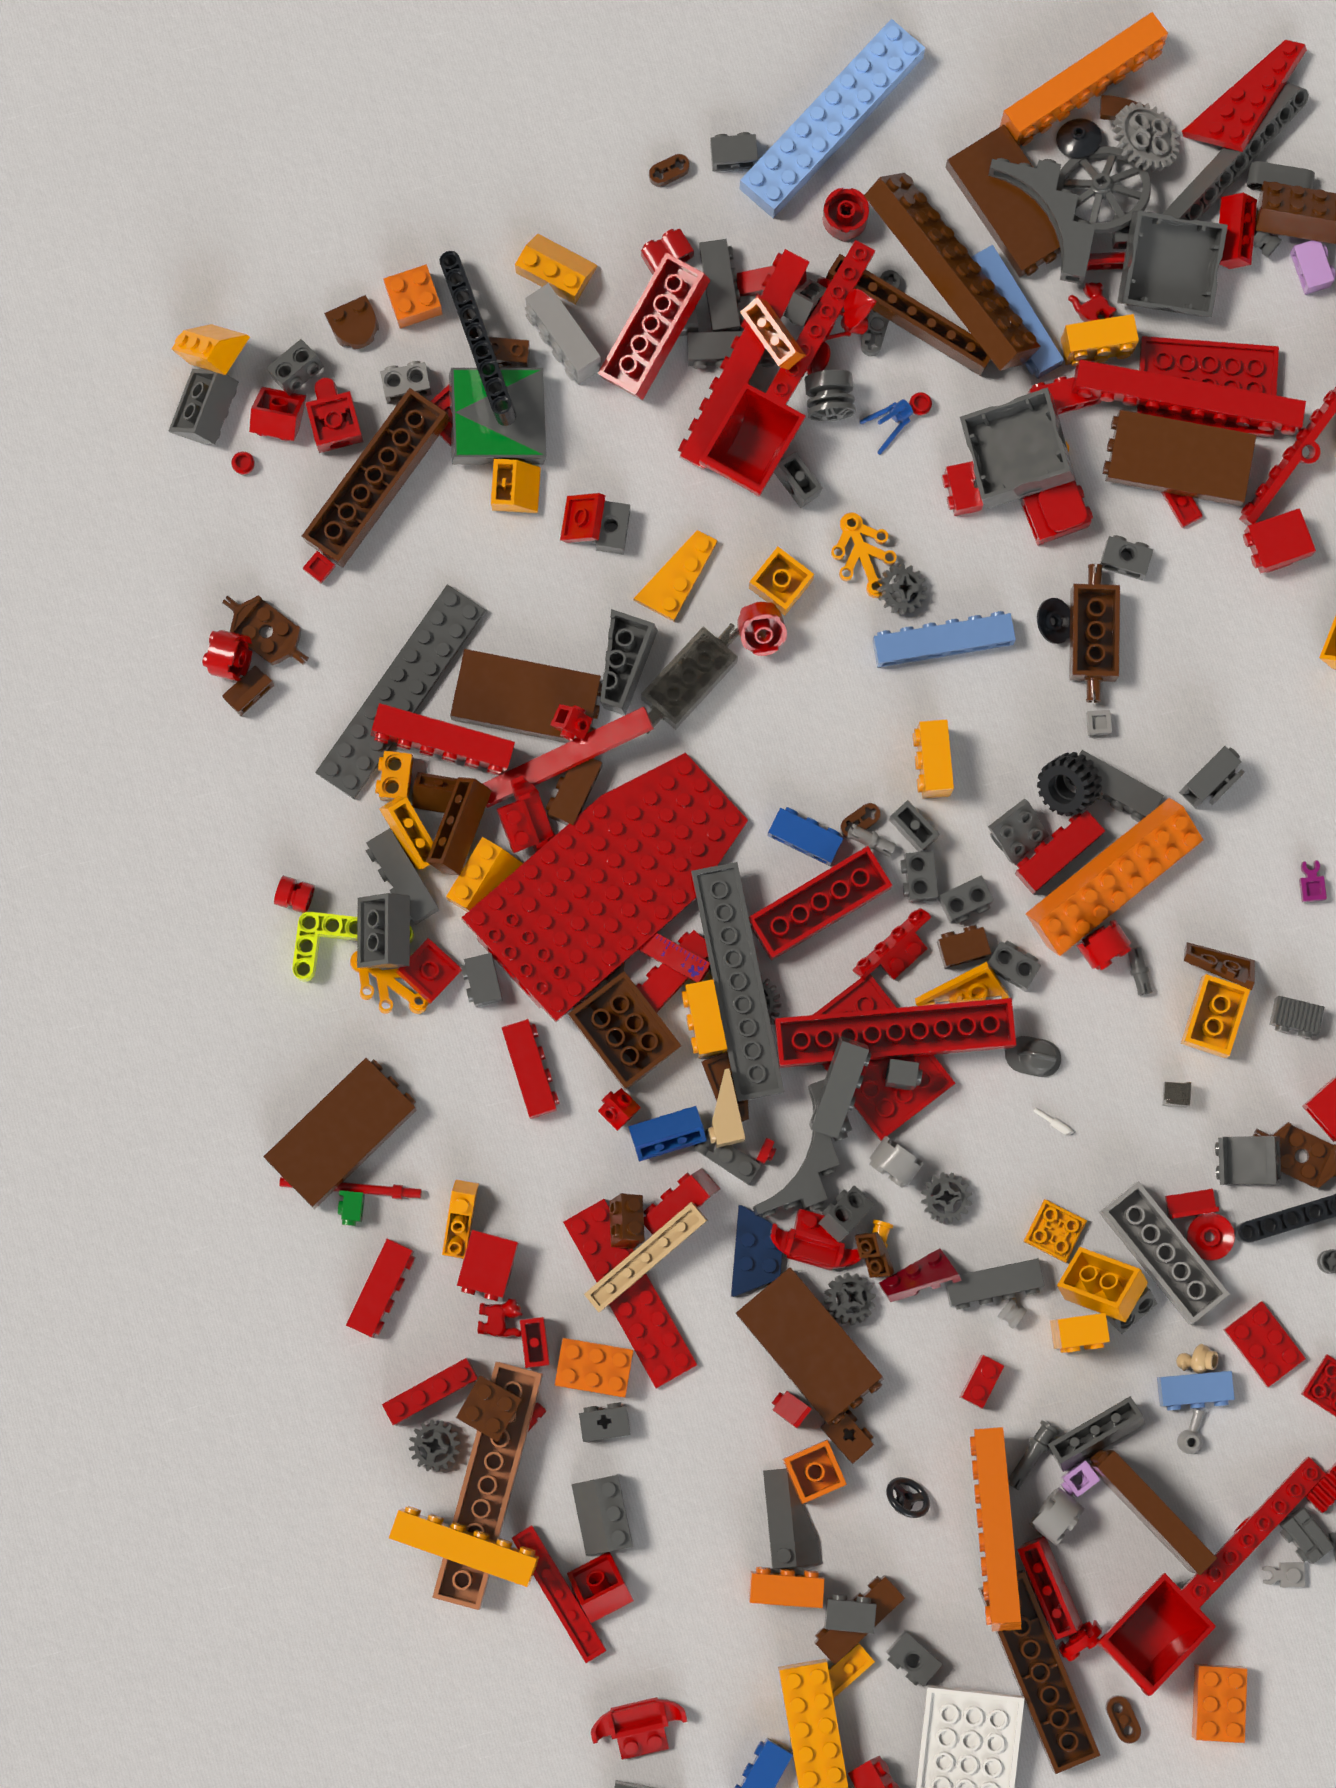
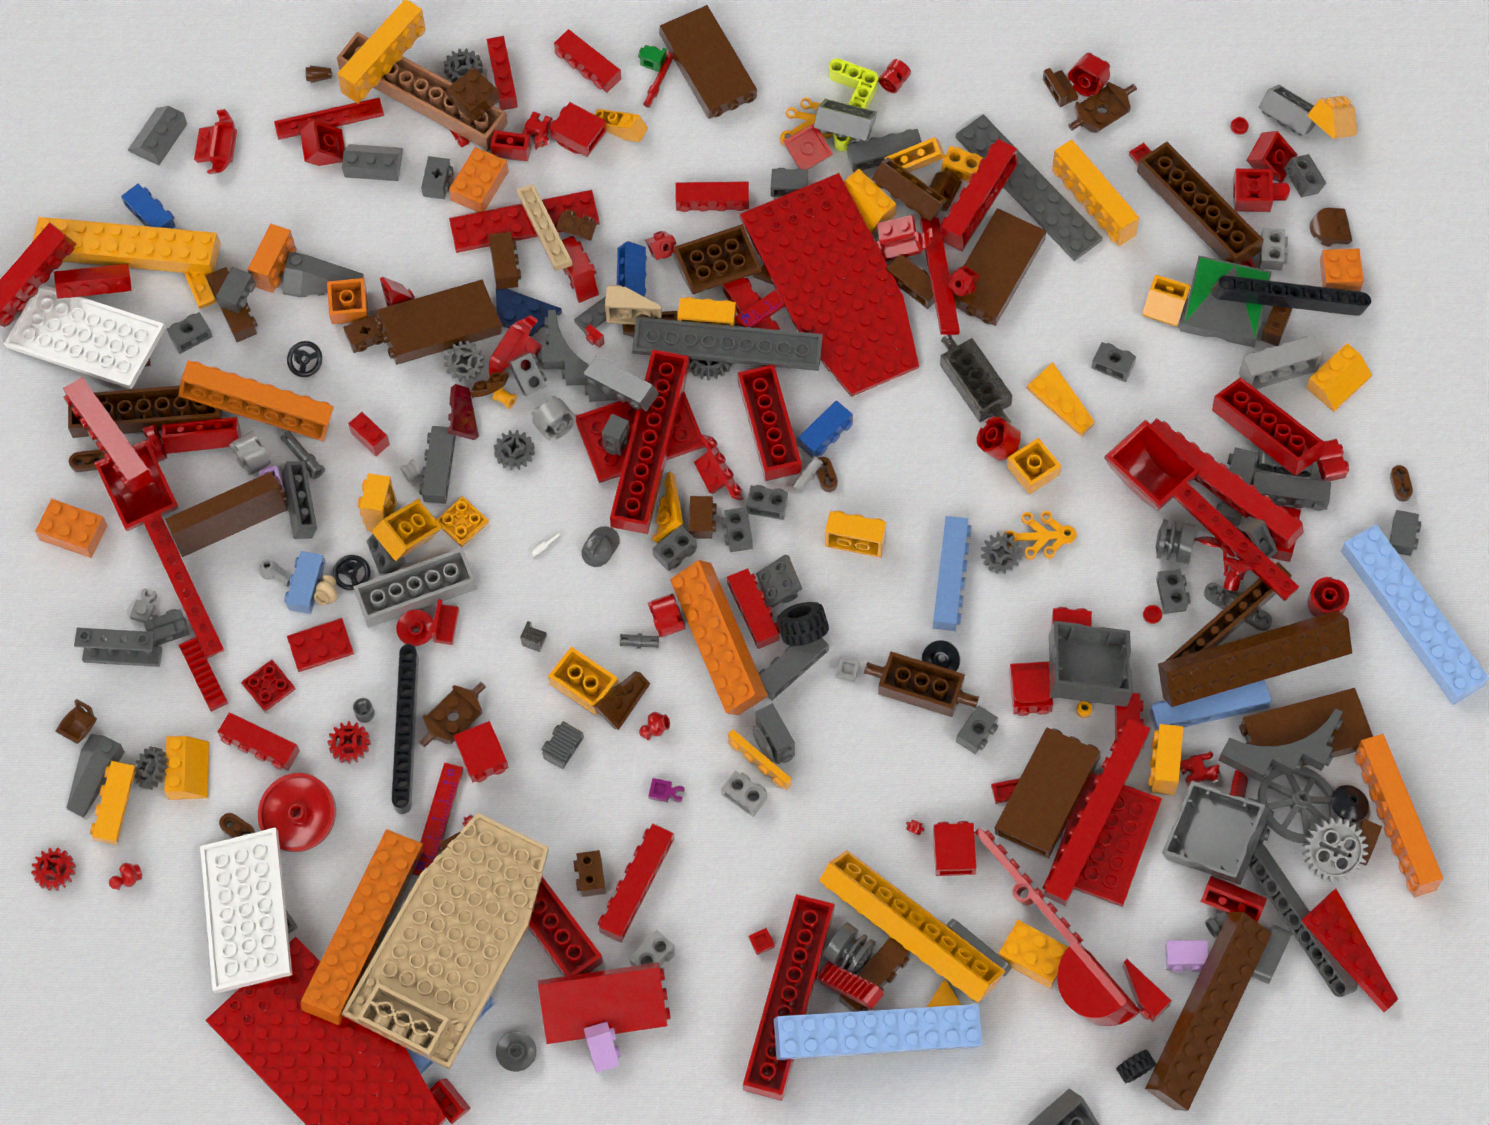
camera: 110 degrees right, 15 degrees down
(394, 605) = (1095, 193): none -> light orange brick
(498, 1633) = (317, 73): none -> reddish brown cone
(582, 517) = (1126, 339): red plate -> none
(625, 658) = (1003, 339): dark grey wedge -> none
(698, 1295) = (504, 260): none -> reddish brown brick
(772, 333) = (1232, 492): orange brick -> none
(798, 480) = (1113, 500): dark grey brick -> none
(890, 392) = (1169, 591): none -> dark grey brick
(898, 412) = (1150, 594): blue plant -> none
(914, 826) = (807, 506): dark grey brick -> none
(1112, 1691) = (107, 434): none -> brick
(1164, 1358) = (350, 565): none -> black piece
(1238, 797) = (764, 765): none -> light orange plate
(1238, 917) = (656, 725): none -> red animal
(1248, 1160) = (463, 670): dark grey panel -> none
(1263, 594) = (914, 827): none -> red plate
(1291, 795) = (741, 796): none -> light grey brick

